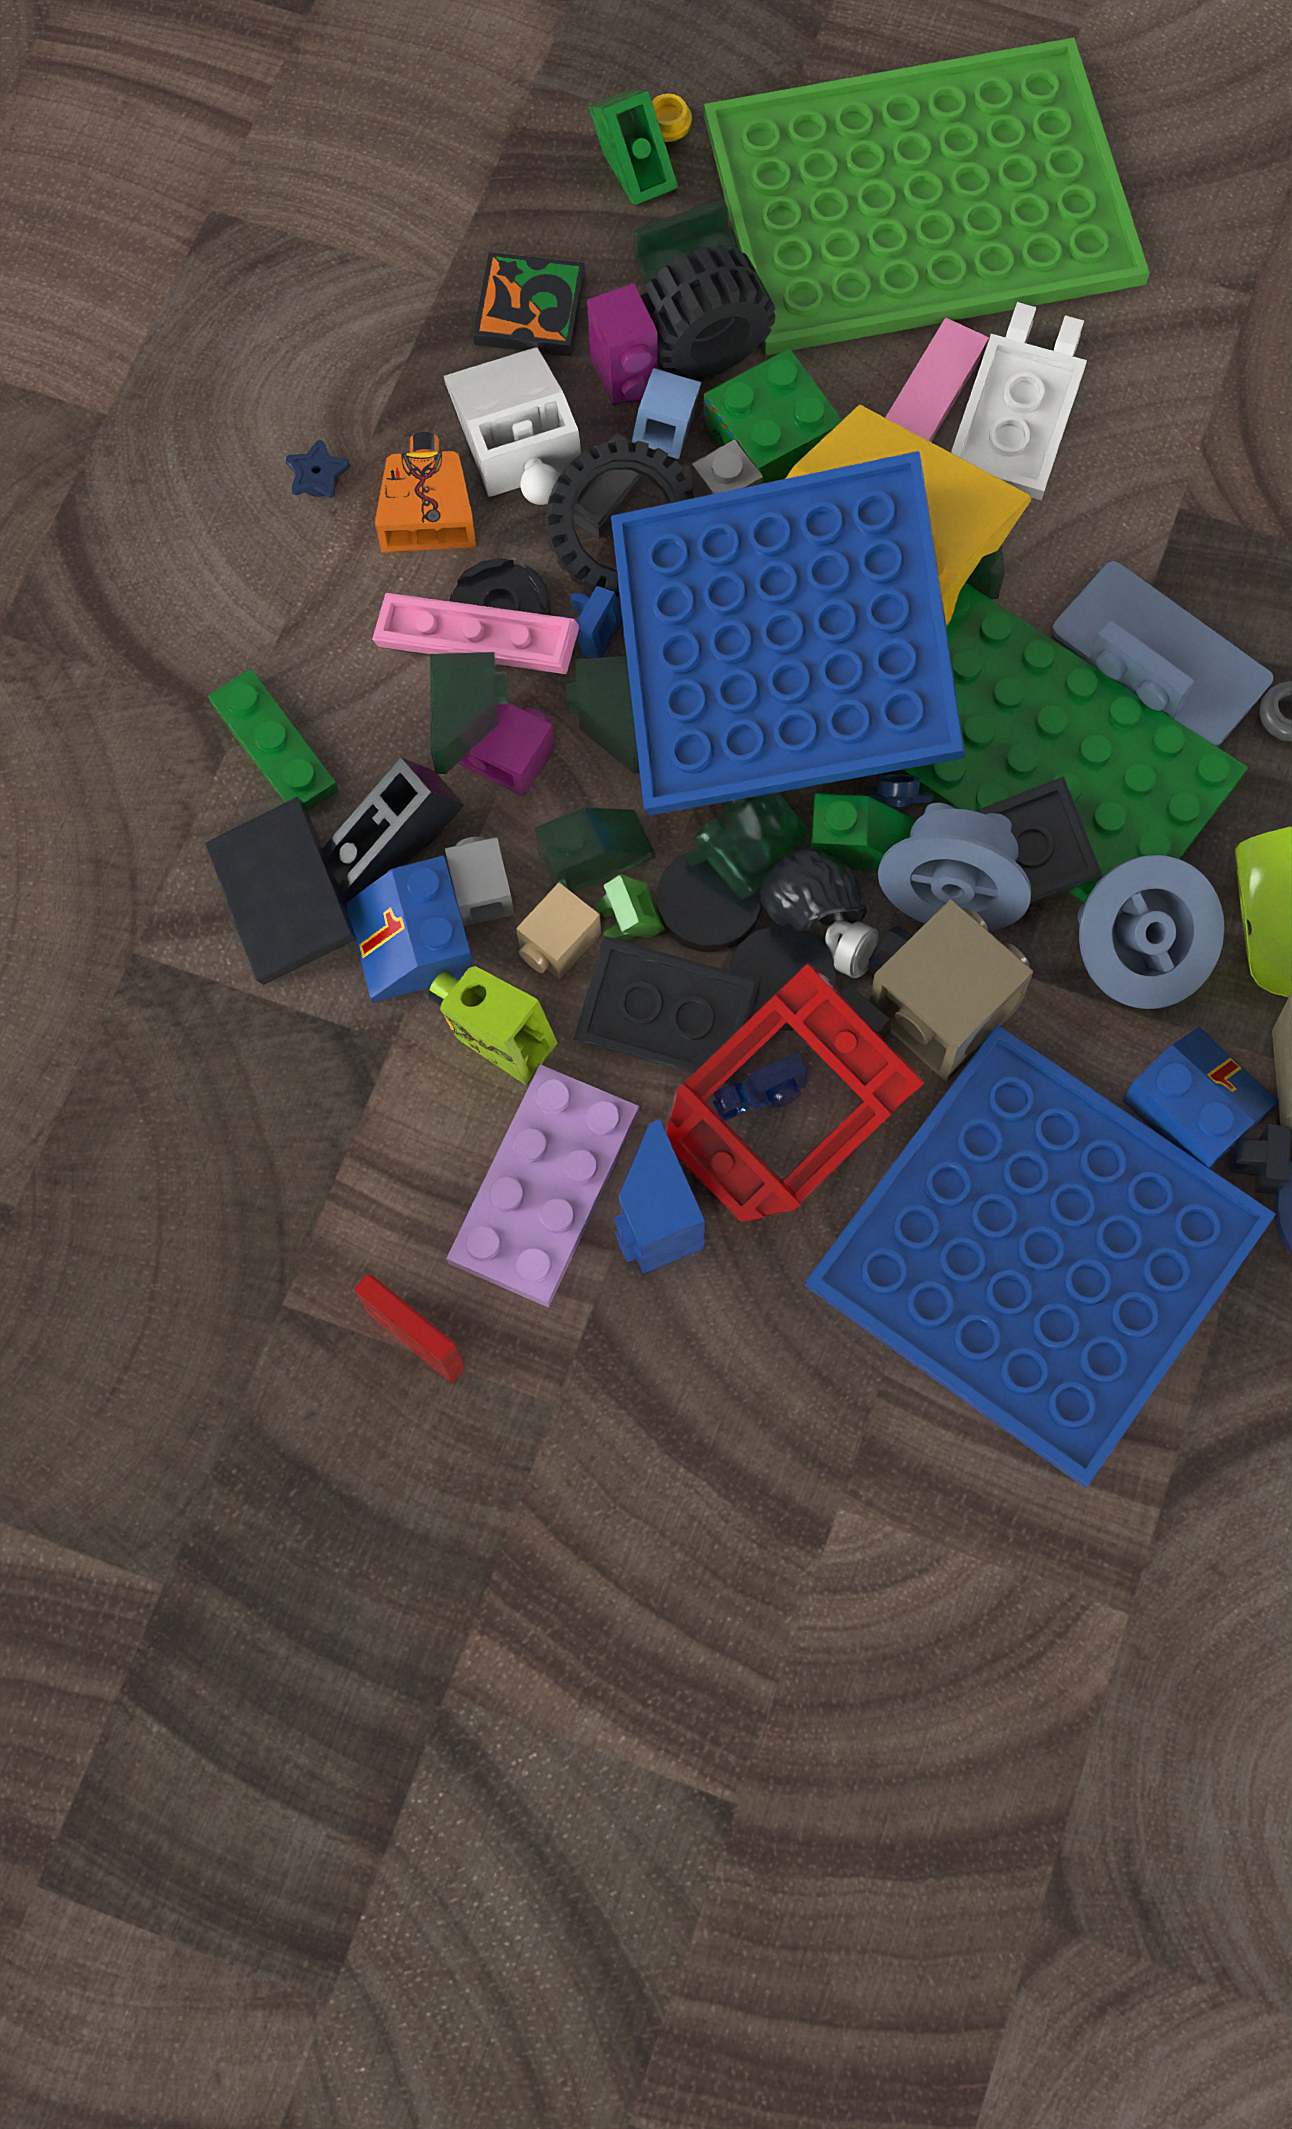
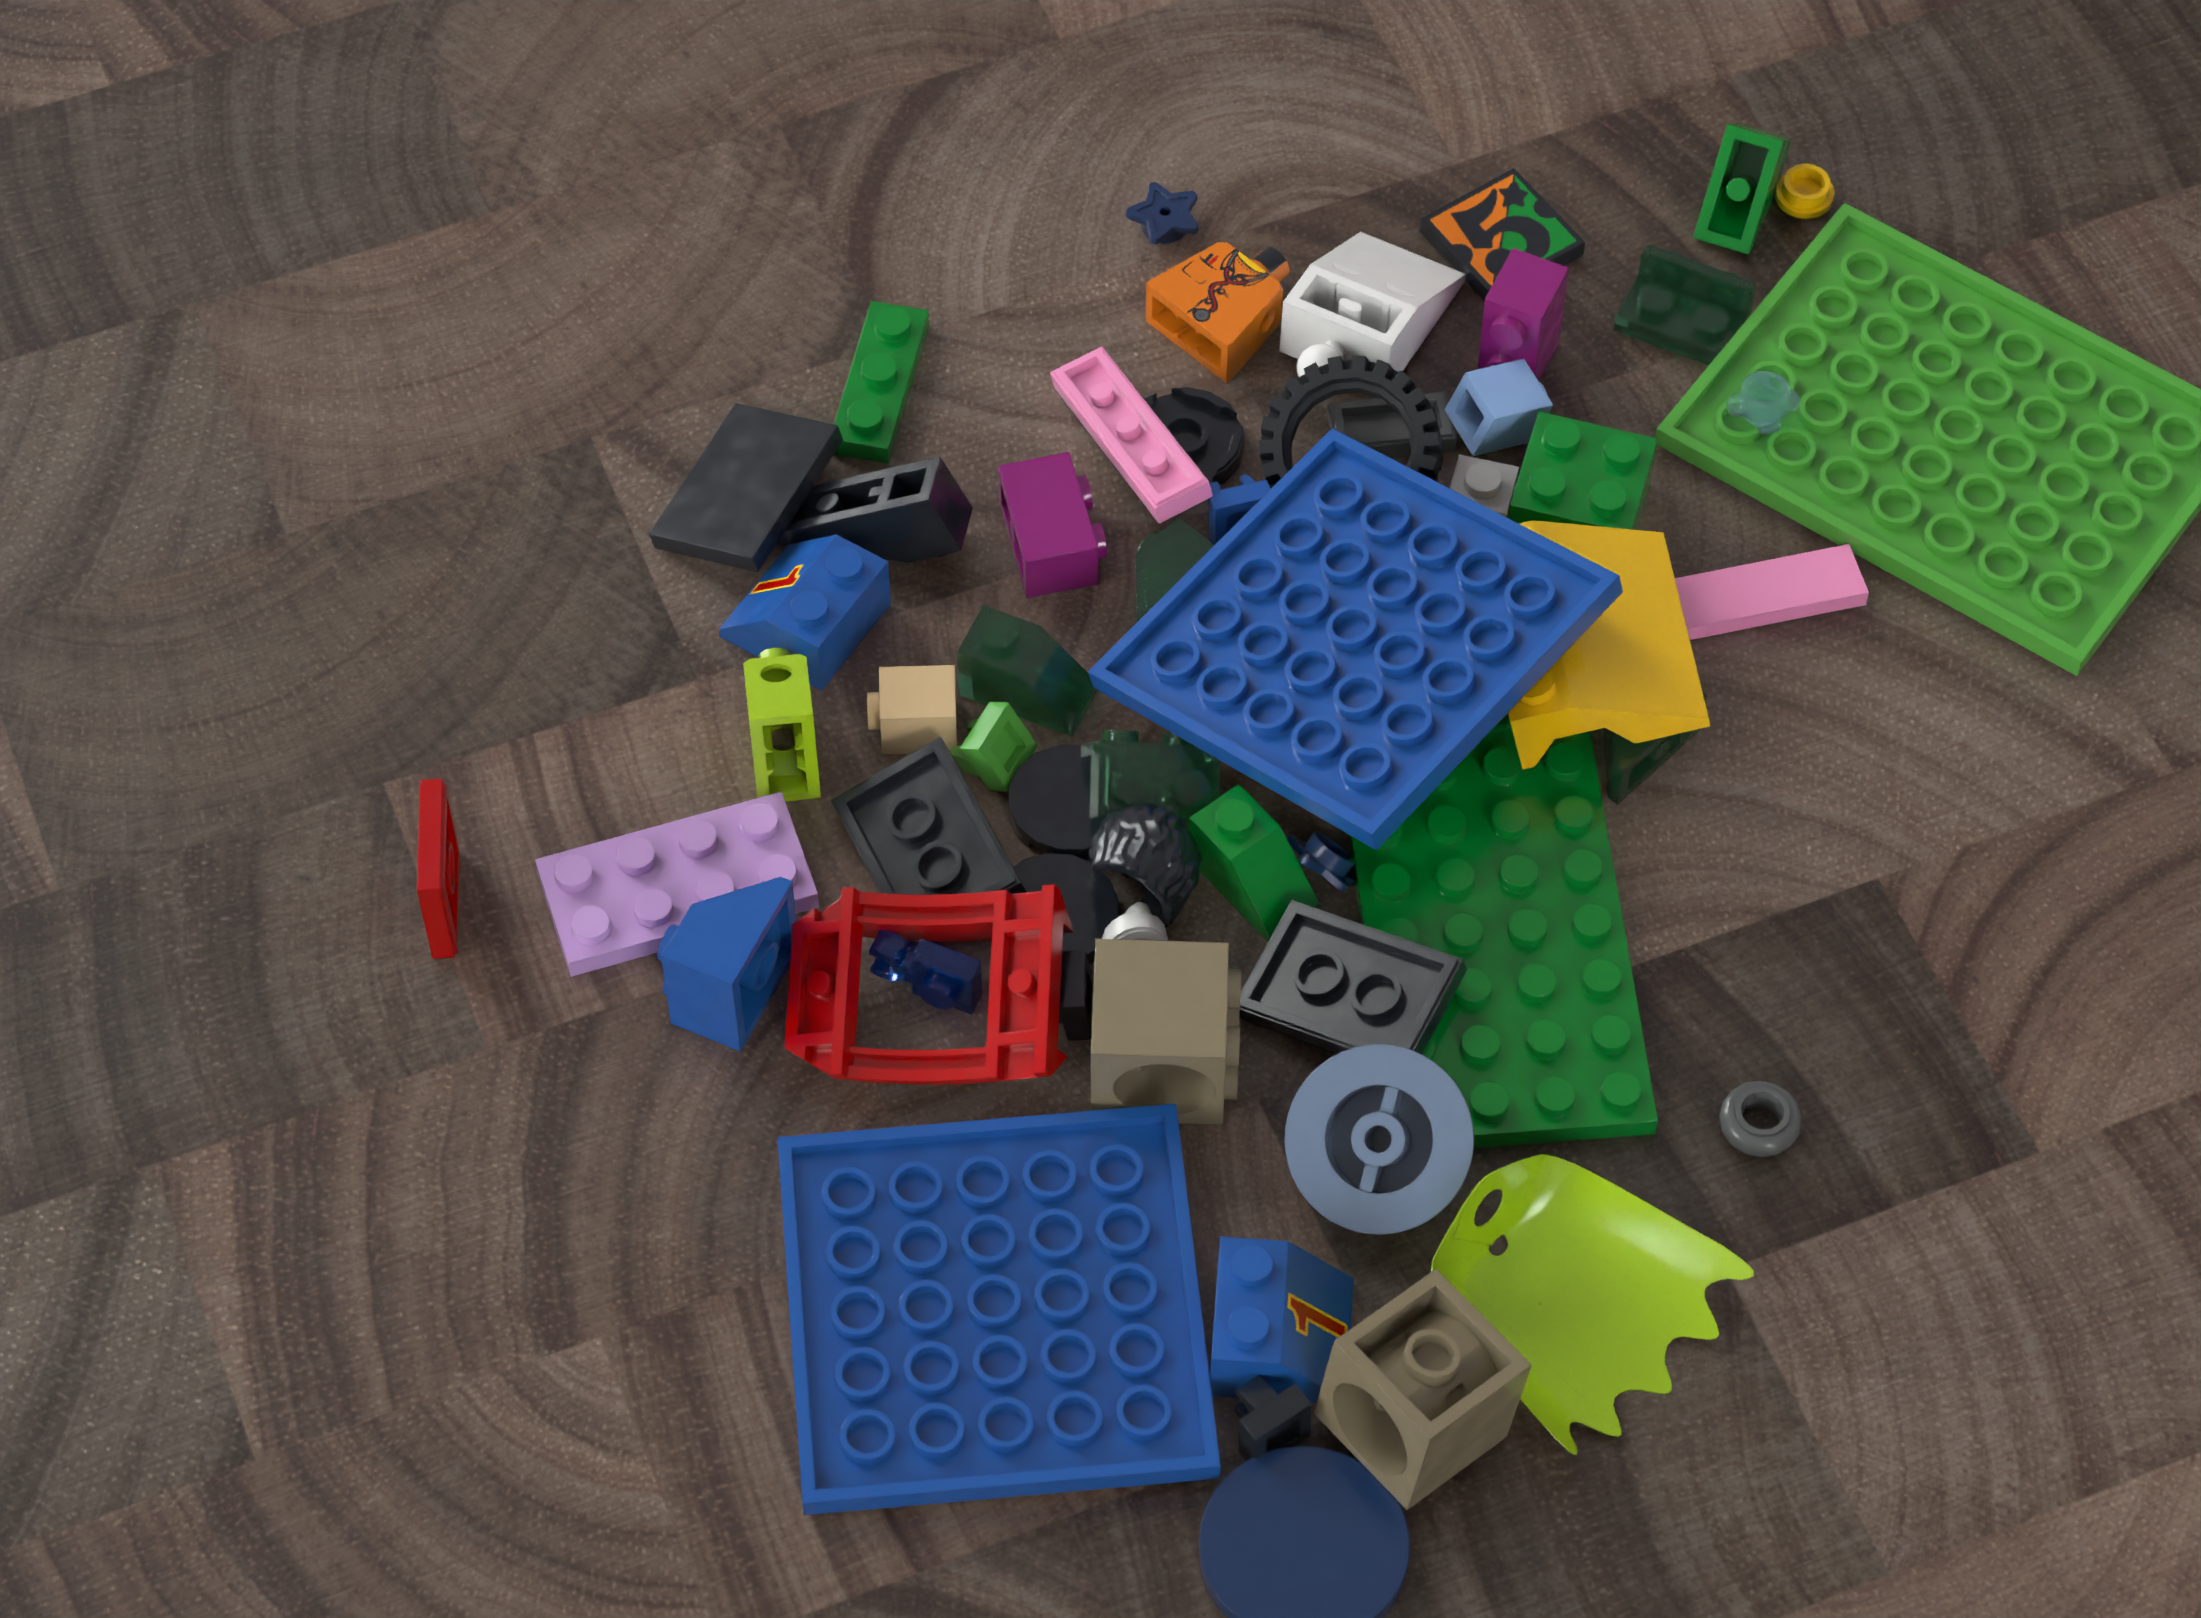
camera: 45 degrees right, 15 degrees down
(463, 704) = (1033, 463): clear green slope -> none
(479, 880) = (903, 616): light grey brick -> none
(708, 311) = (1619, 351): black tyre -> none
(815, 259) = (1768, 389): none -> clear light blue plate
(958, 859) = (1276, 931): sand blue piece -> none
(1021, 404) = (1829, 668): white tile -> none
(1162, 653) = (1699, 970): sand blue bracket -> none

